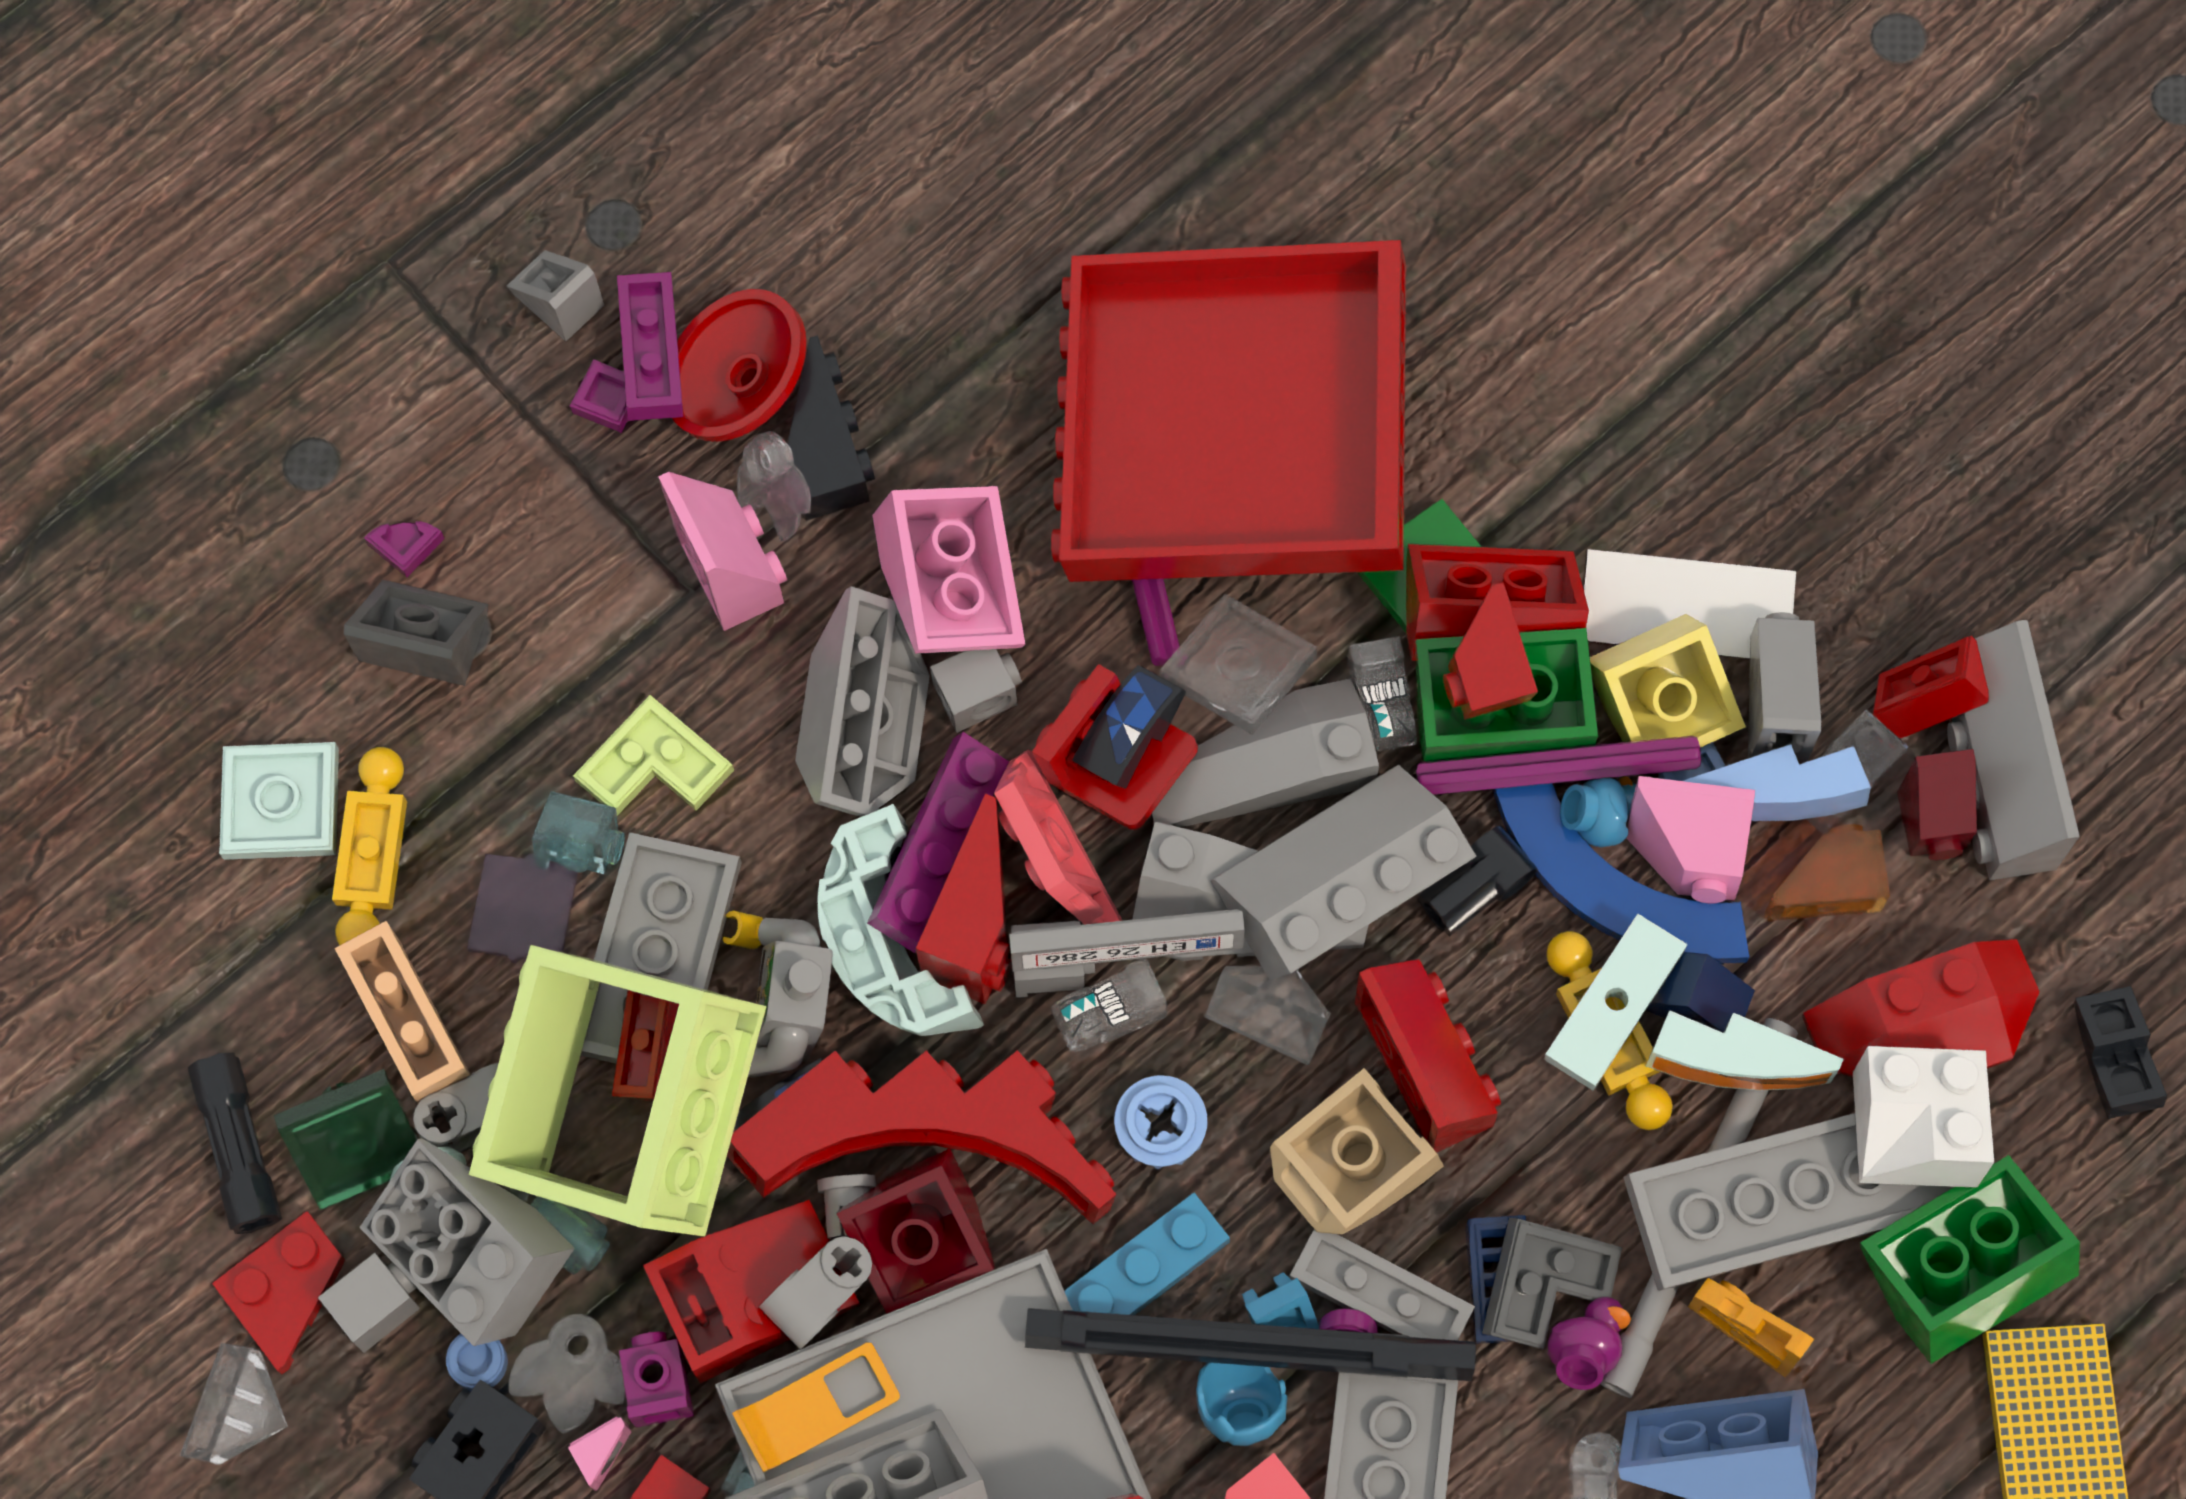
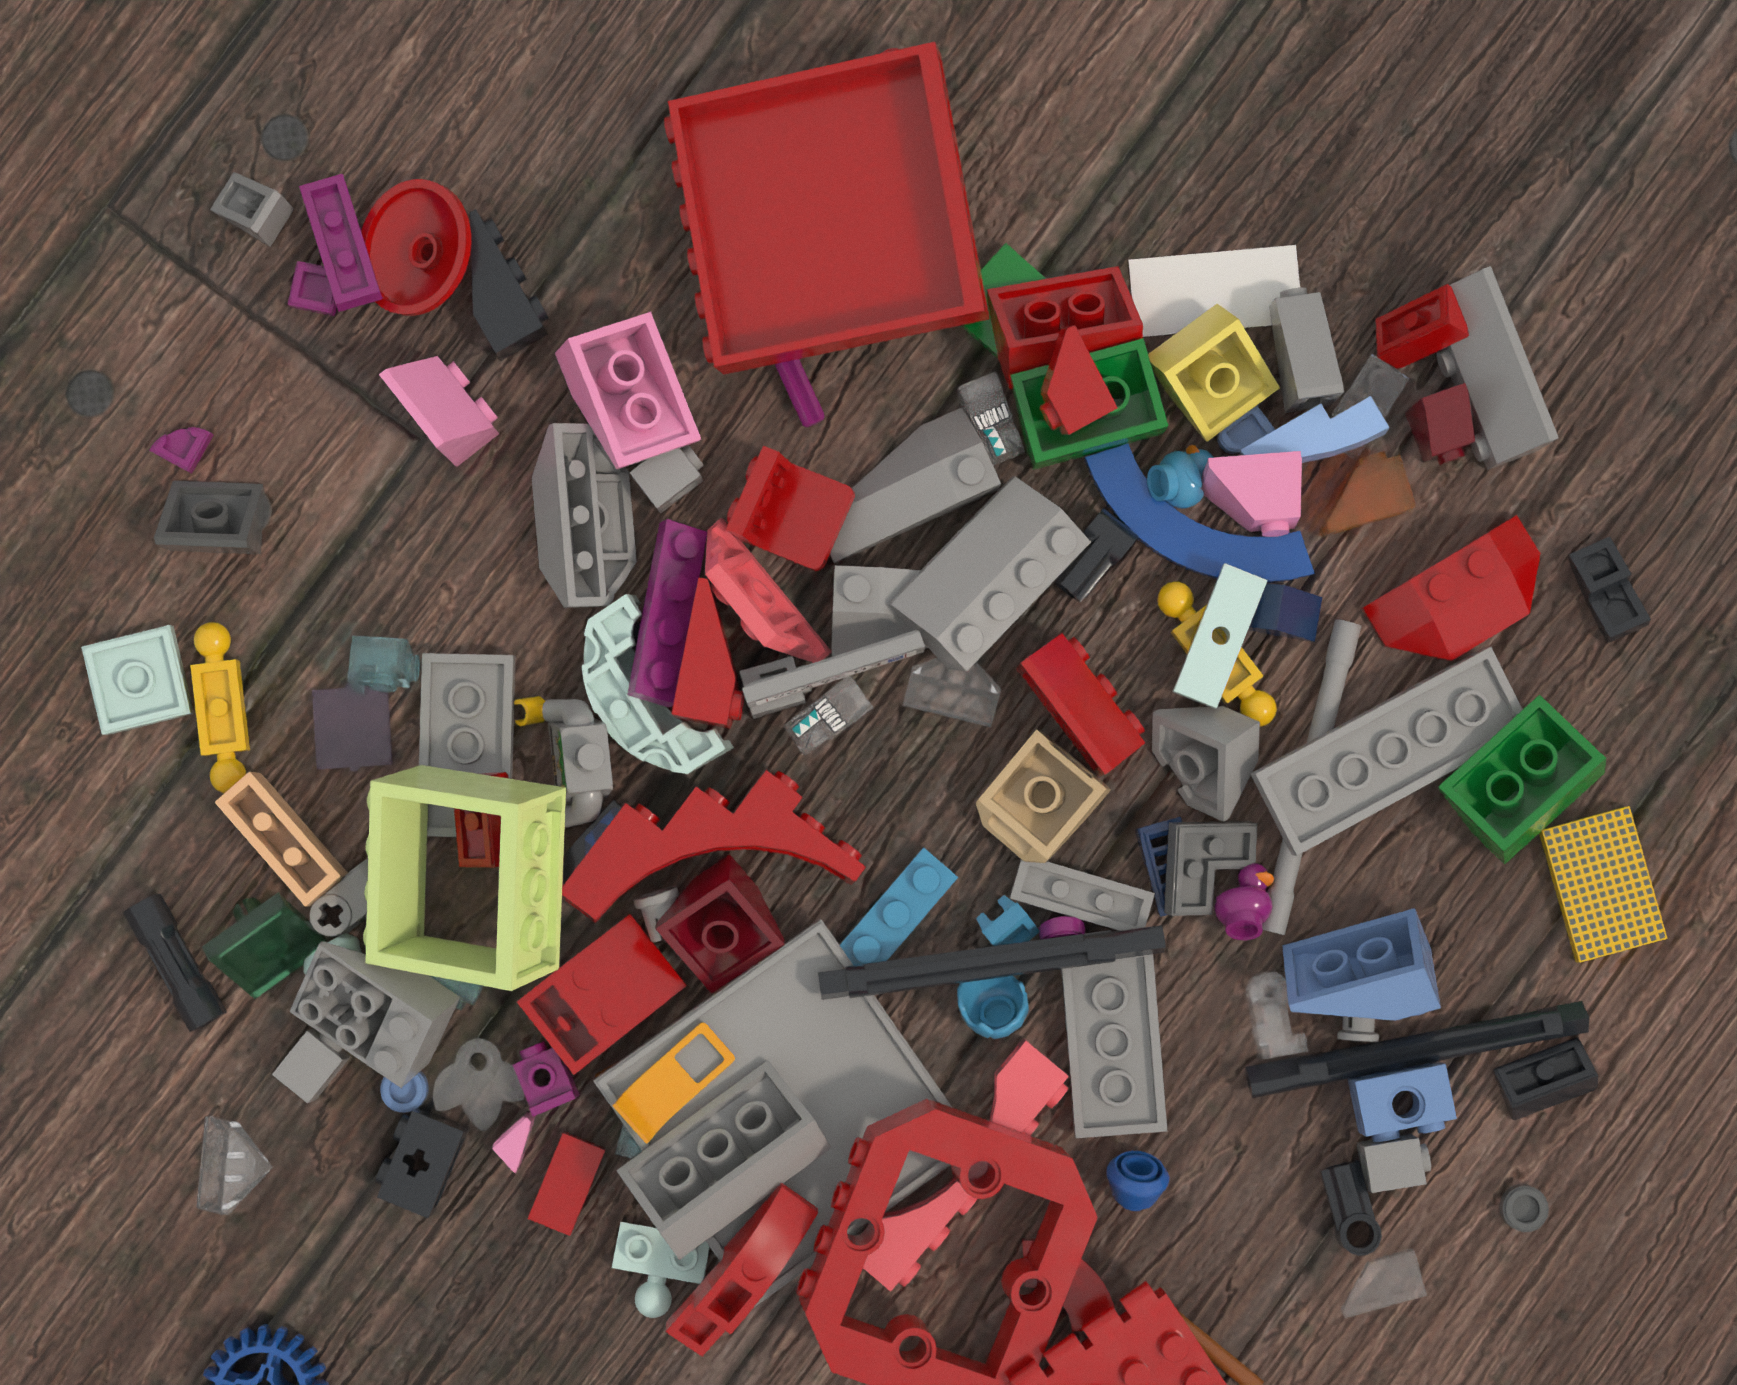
camera: 15 degrees left, 15 degrees up
(280, 1285) = (241, 1064): red wing -> none
(649, 746) = (425, 574): yellowish green tile -> none
(773, 481) = (464, 337): clear plate -> none
(815, 1292) = (651, 997): light grey piece -> none
(1127, 723) = (795, 488): slope -> none
(1155, 1095) = (878, 776): light blue gear -> none
(1239, 663) = (872, 415): clear tile -> none
(1560, 765) = (1140, 451): magenta axle -> none
(1574, 1148) = (1208, 753): none -> light grey slope
(1740, 1057) = (1320, 661): light aqua slope -> none
(1751, 1326) = (1379, 871): light orange wing -> none
(1923, 1116) = (1471, 683): white slope -> none

